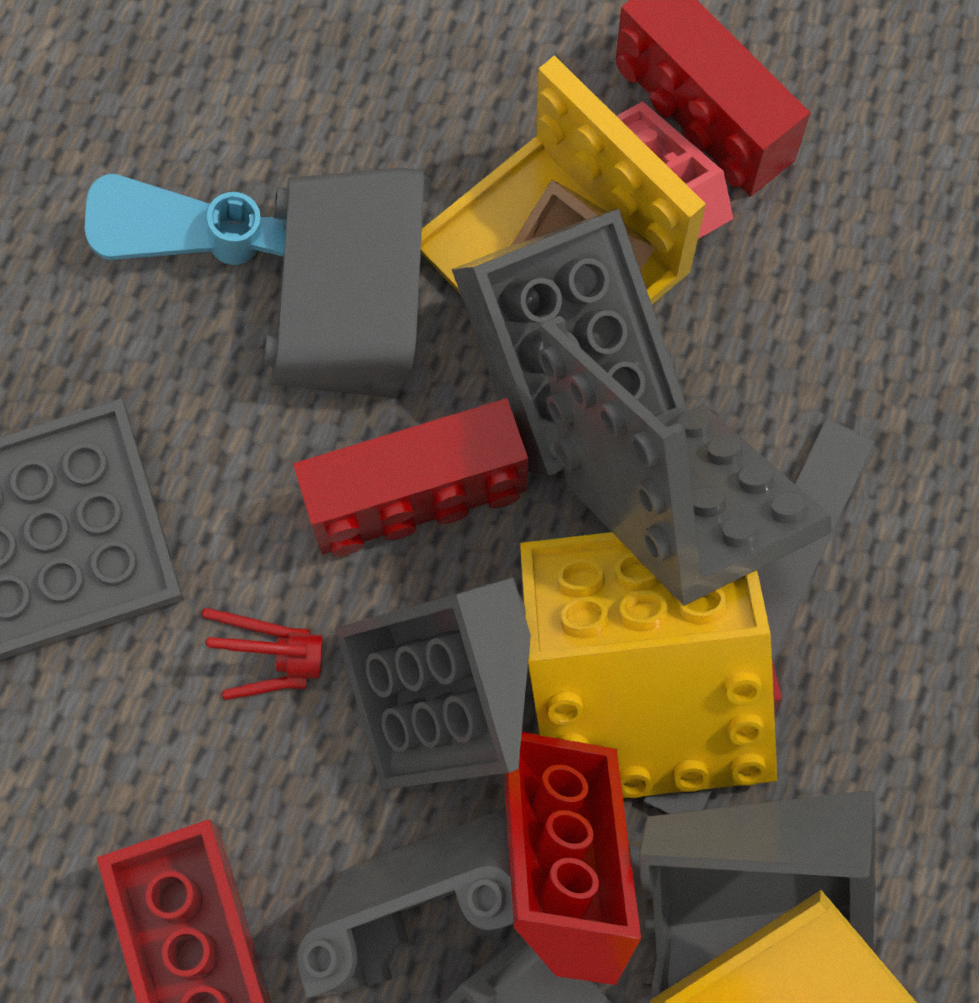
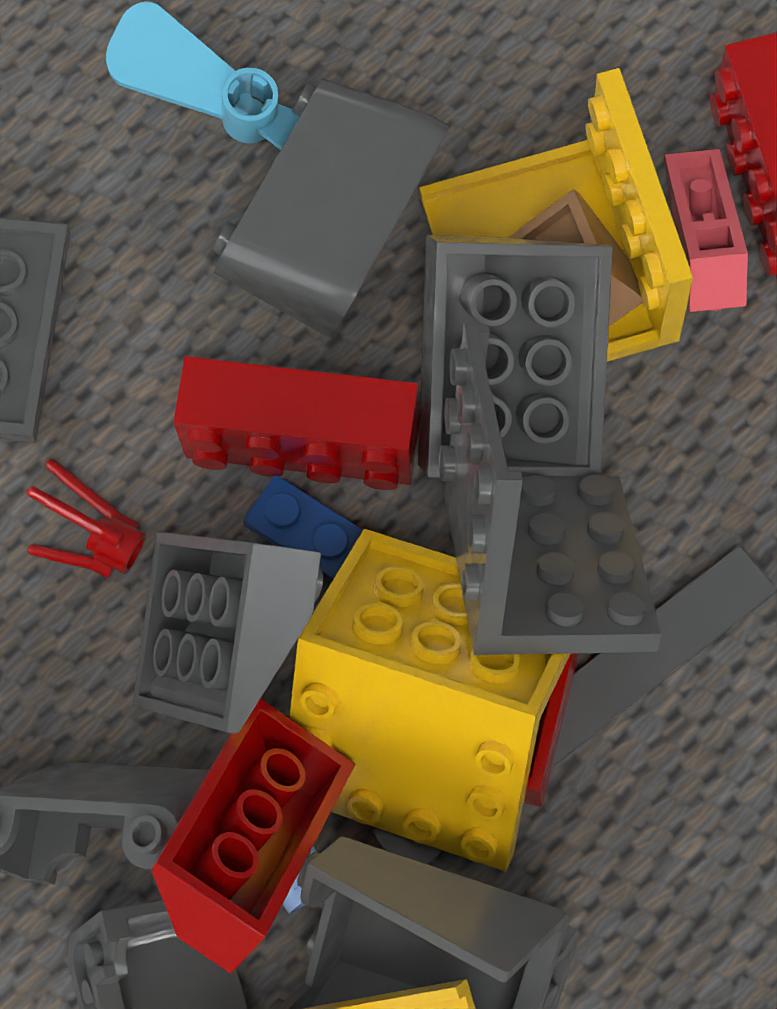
camera: 30 degrees right, 0 degrees up
(454, 565) = (300, 522): none -> blue plate

